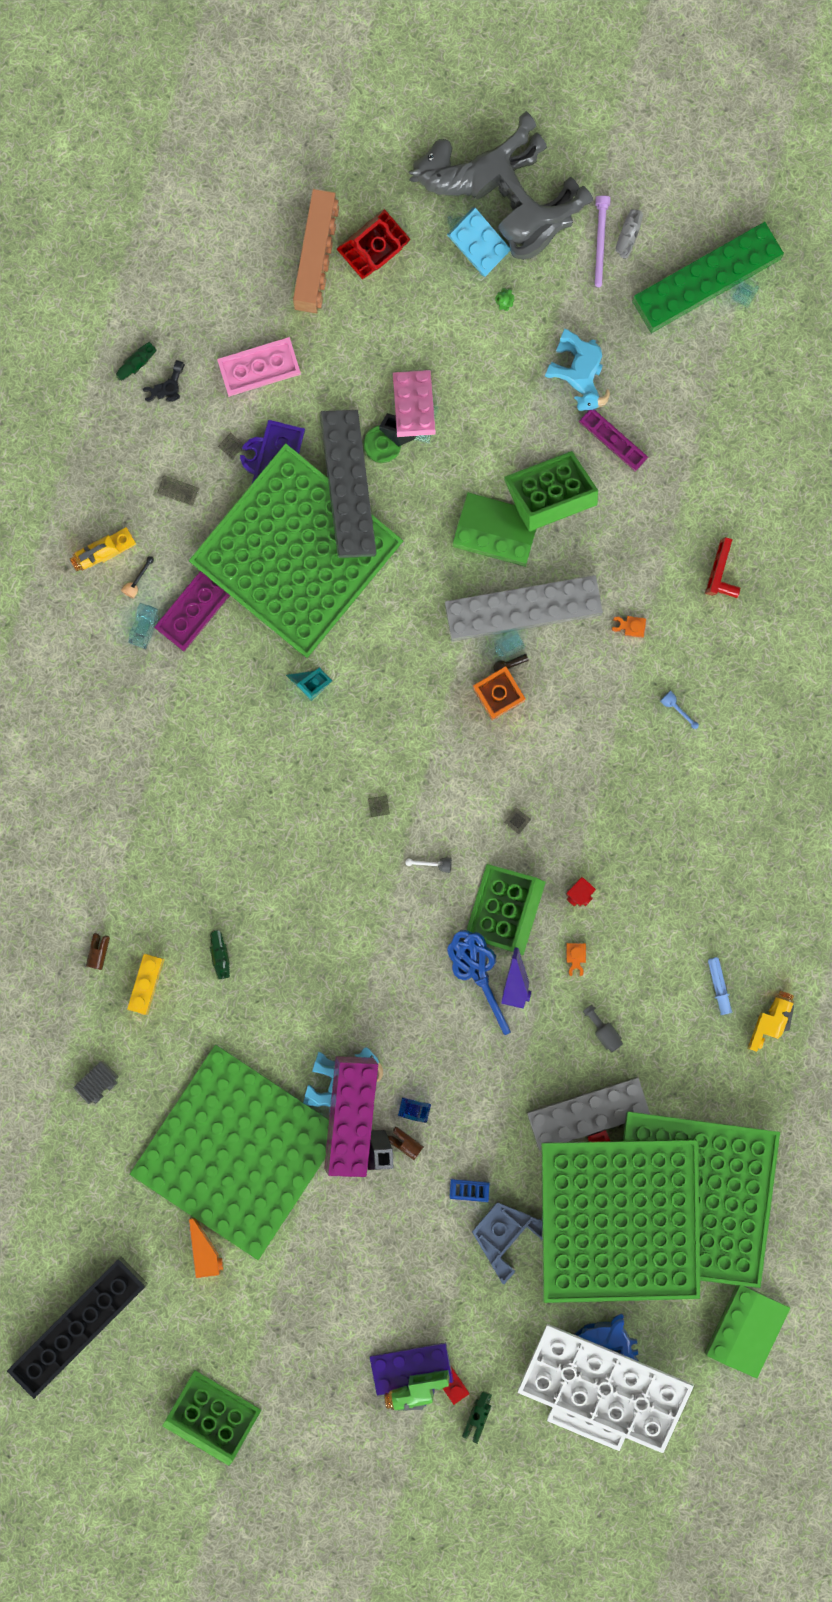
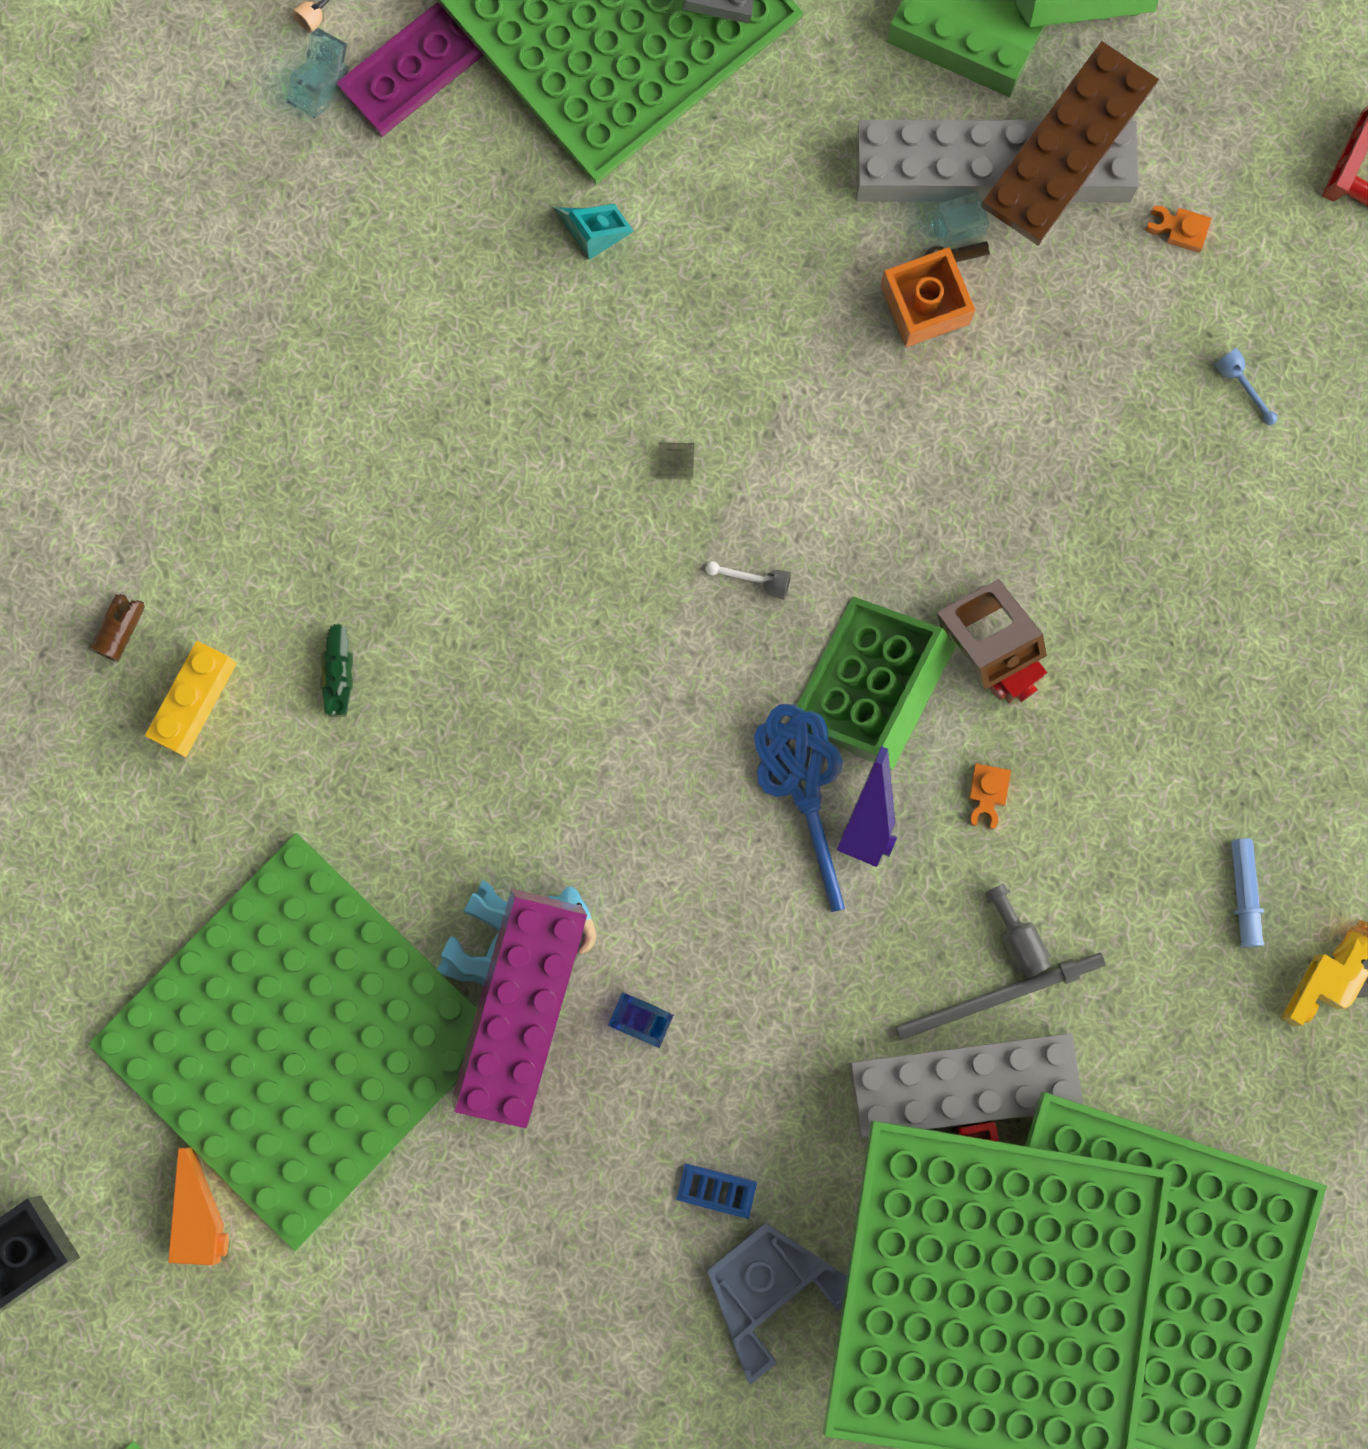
camera: 10 degrees right, 5 degrees down
(96, 1082) = (63, 863): dark grey brick -> none
(380, 1151) = (561, 1086): black slope -> none
(409, 1146) = (619, 1086): reddish brown hinge -> none
(517, 820) = (921, 529): clear smoke tile -> none
(561, 596) = (1069, 143): none -> reddish brown plate
(572, 882) = (1003, 651): none -> window
(632, 1044) = (1067, 971): none -> dark grey bar

